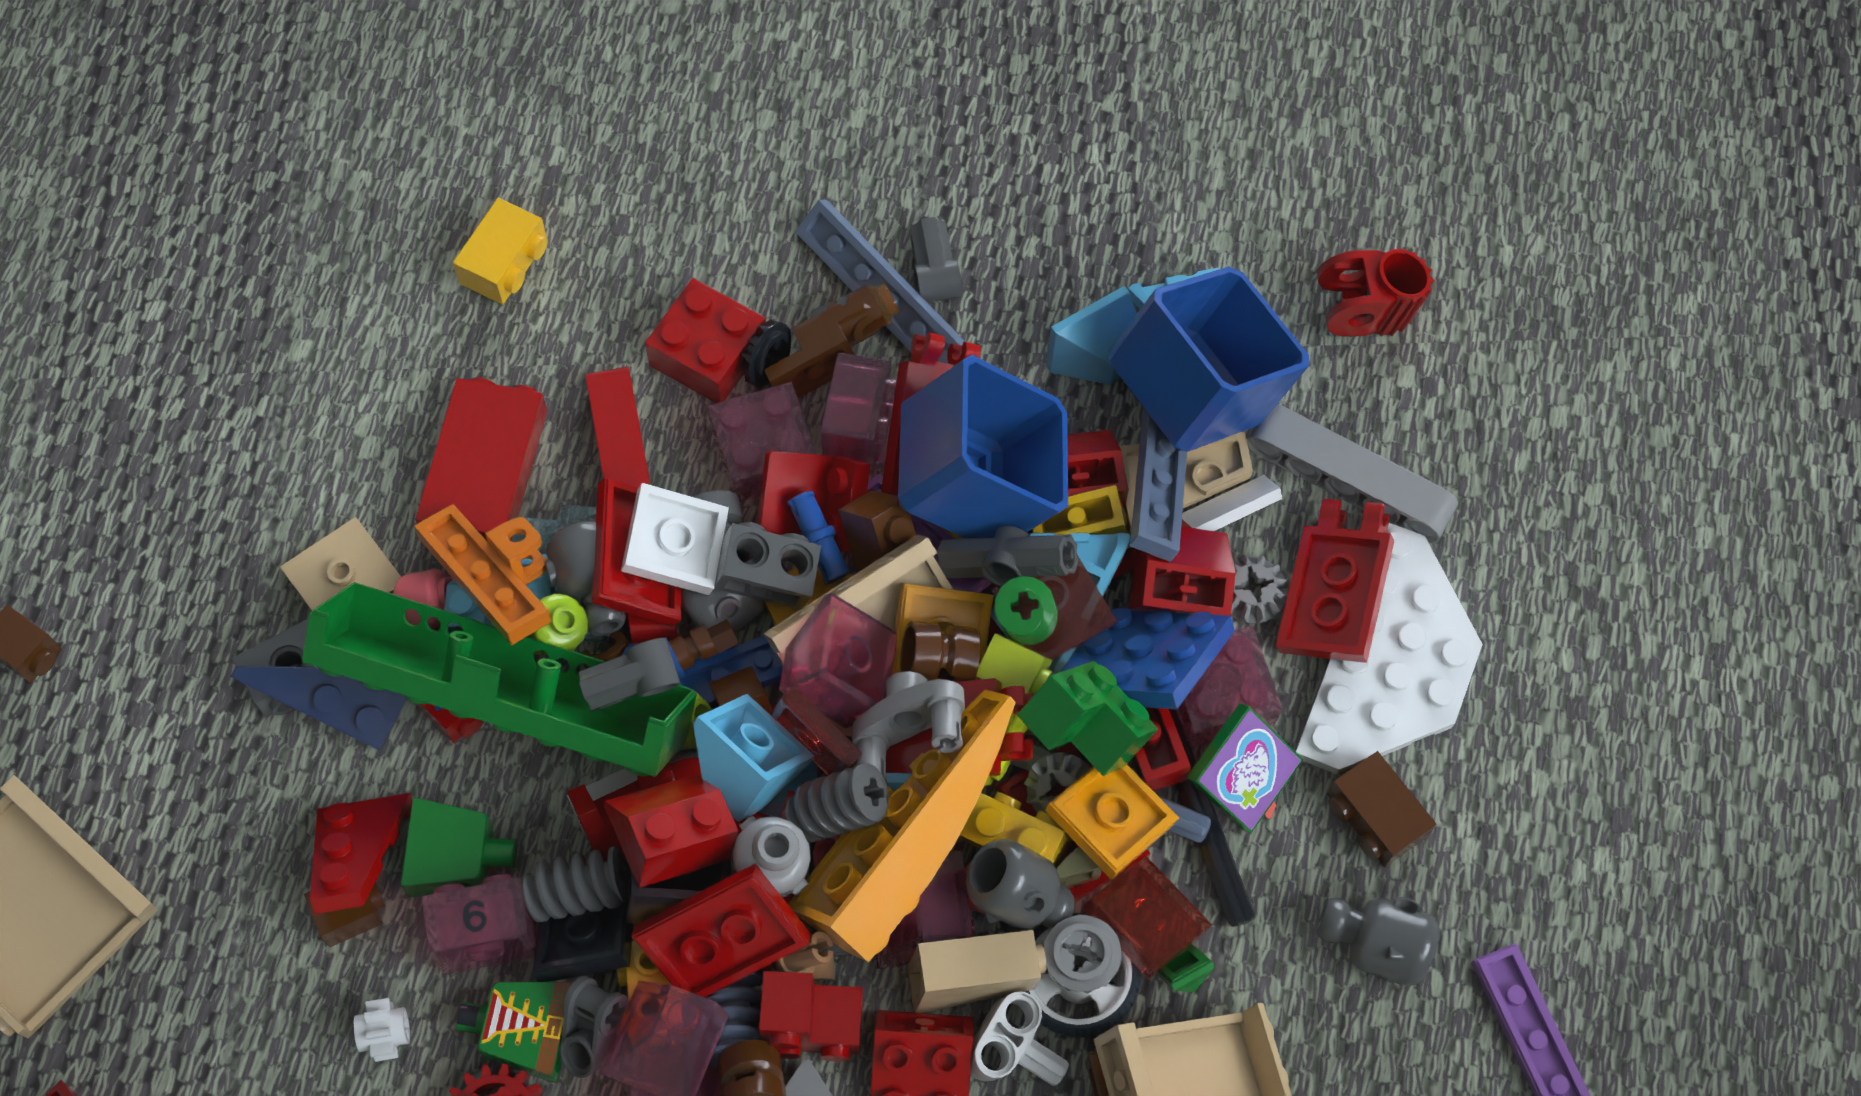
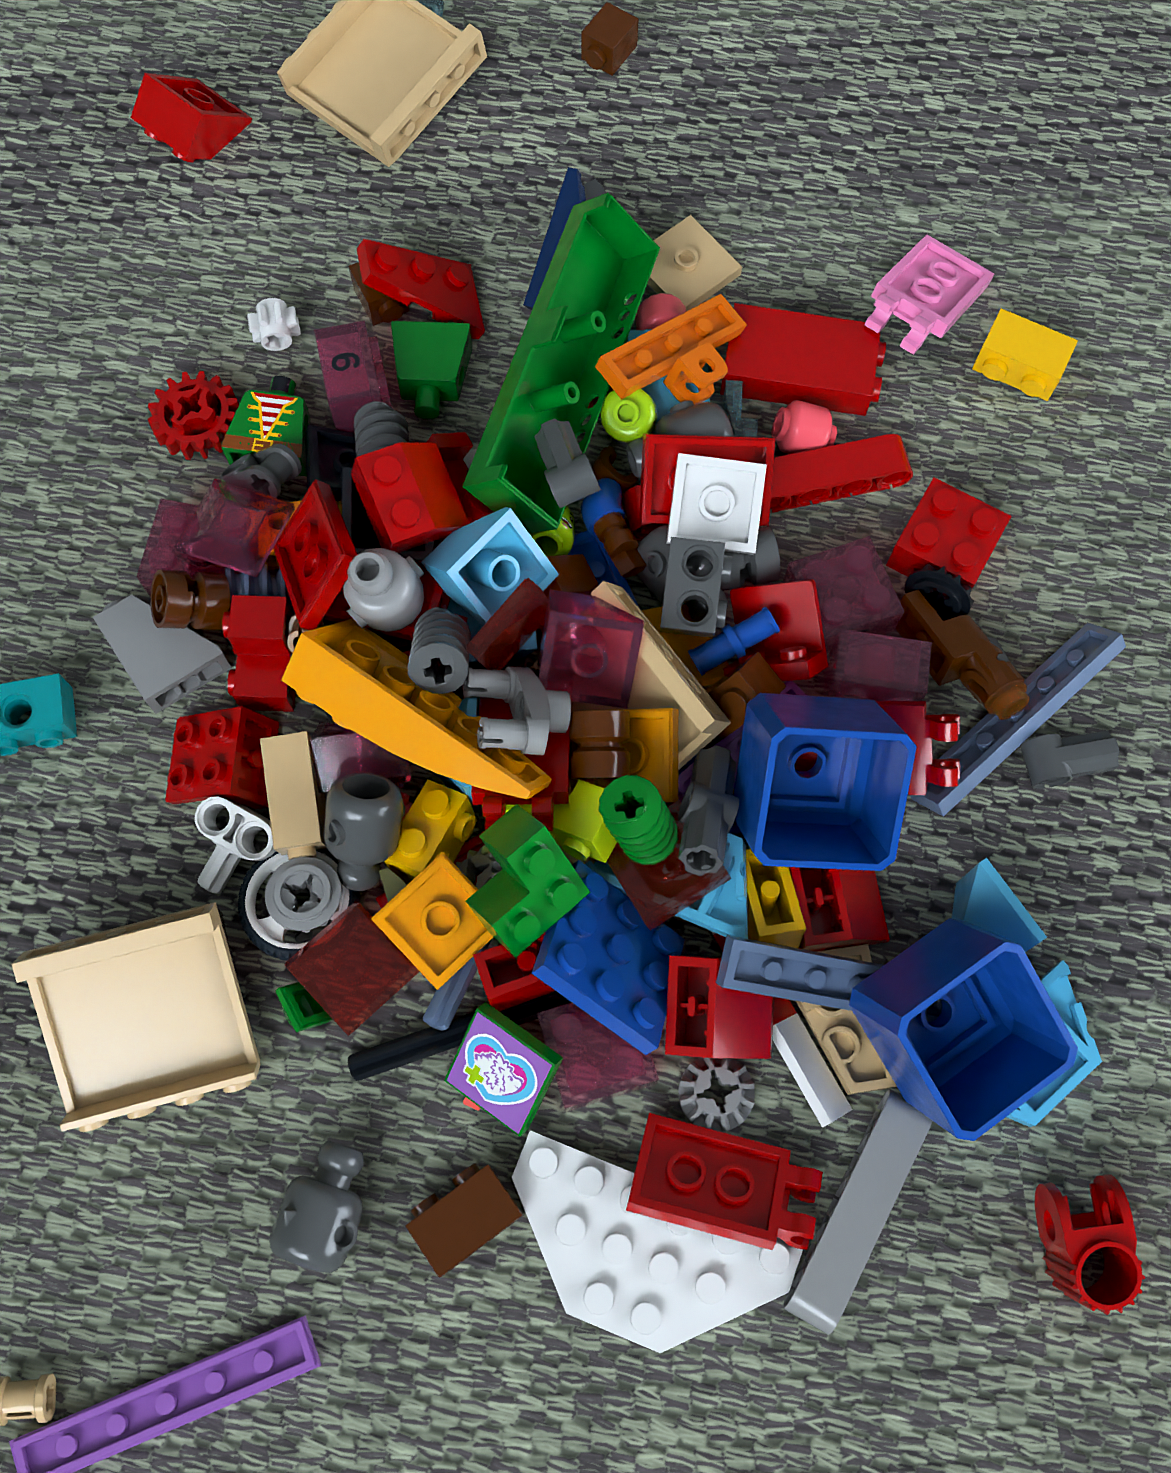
camera: 90 degrees right, 5 degrees up
(416, 331) = (928, 291): none -> bright pink tile
(568, 466) = (803, 427): none -> coral head

